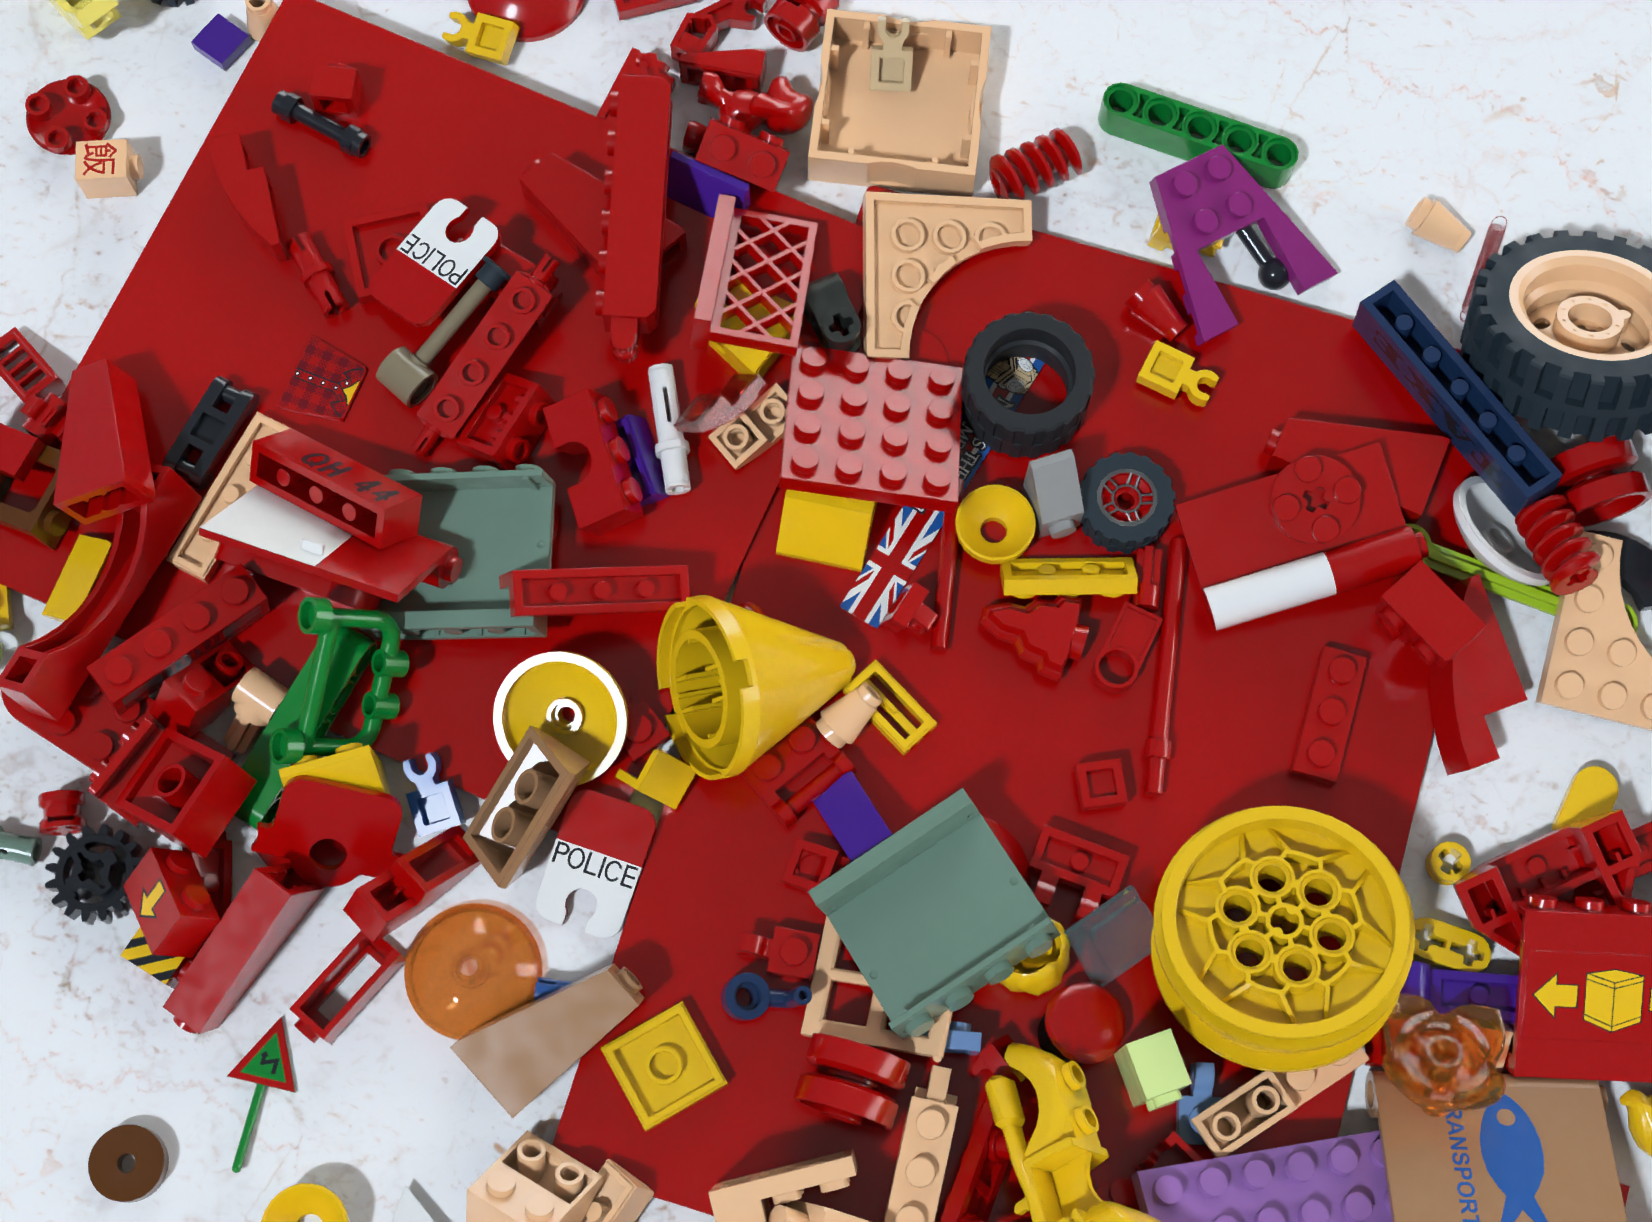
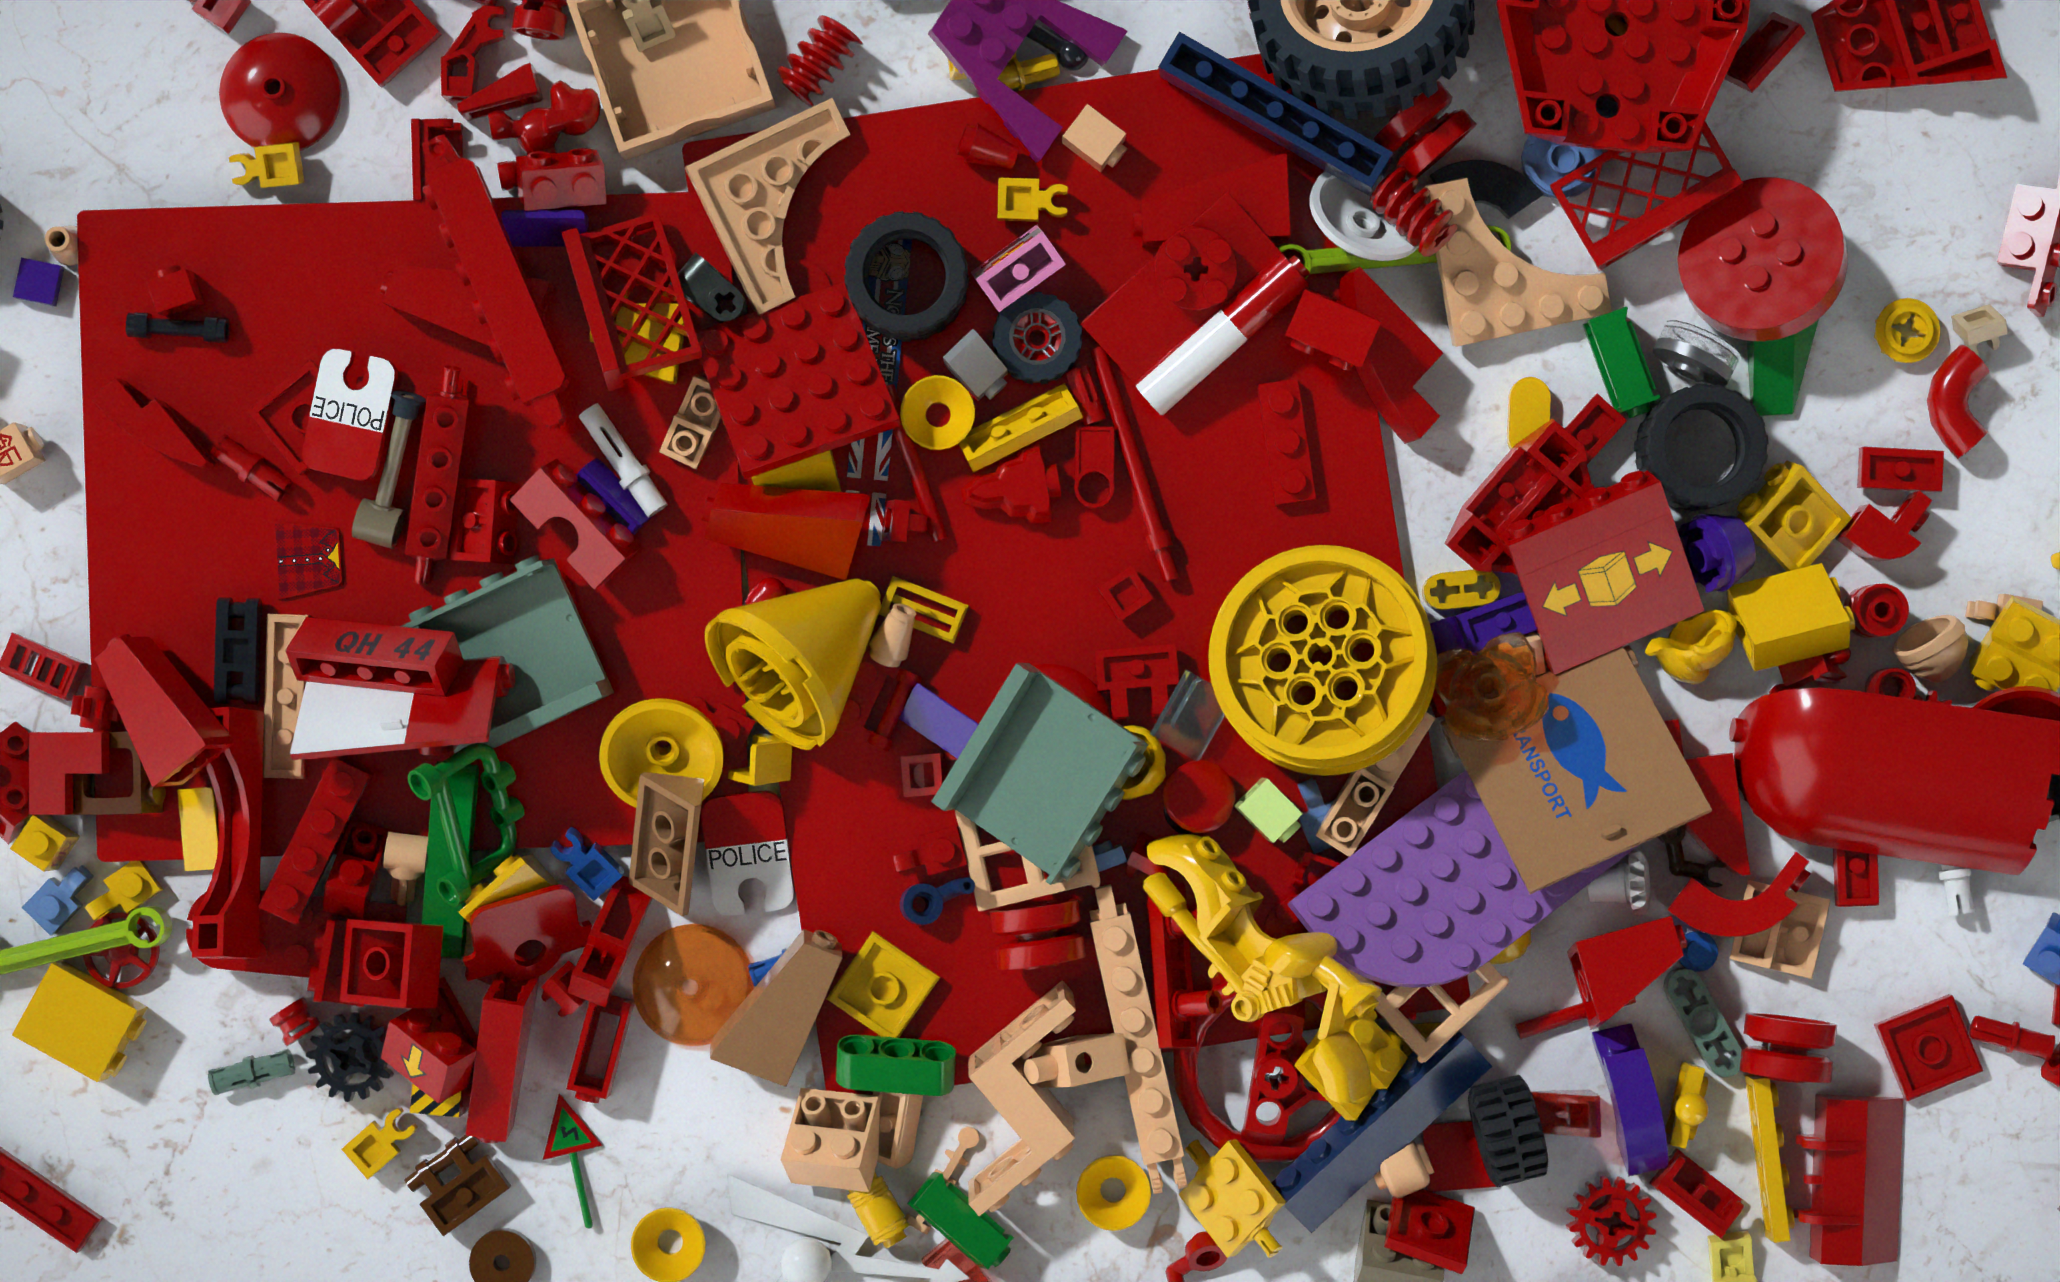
camera: 25 degrees left, 15 degrees up
(69, 976) = (376, 1145): none -> yellow plate
(132, 1070) = (465, 1193): none -> reddish brown plate
(332, 905) = (557, 988): none -> red tile
(595, 590) = (638, 638): red fence -> none
(637, 1151) = (895, 1065): none -> green beam
(715, 410) = (652, 435): clear red slope -> none
(800, 559) = (789, 524): none -> red slope
(1138, 426) = (1018, 268): none -> bright pink brick
(1230, 267) = (1029, 71): none -> yellow axle
(1265, 348) = (1095, 139): none -> light nougat brick
(1461, 863) = (1445, 512): yellow bush -> none

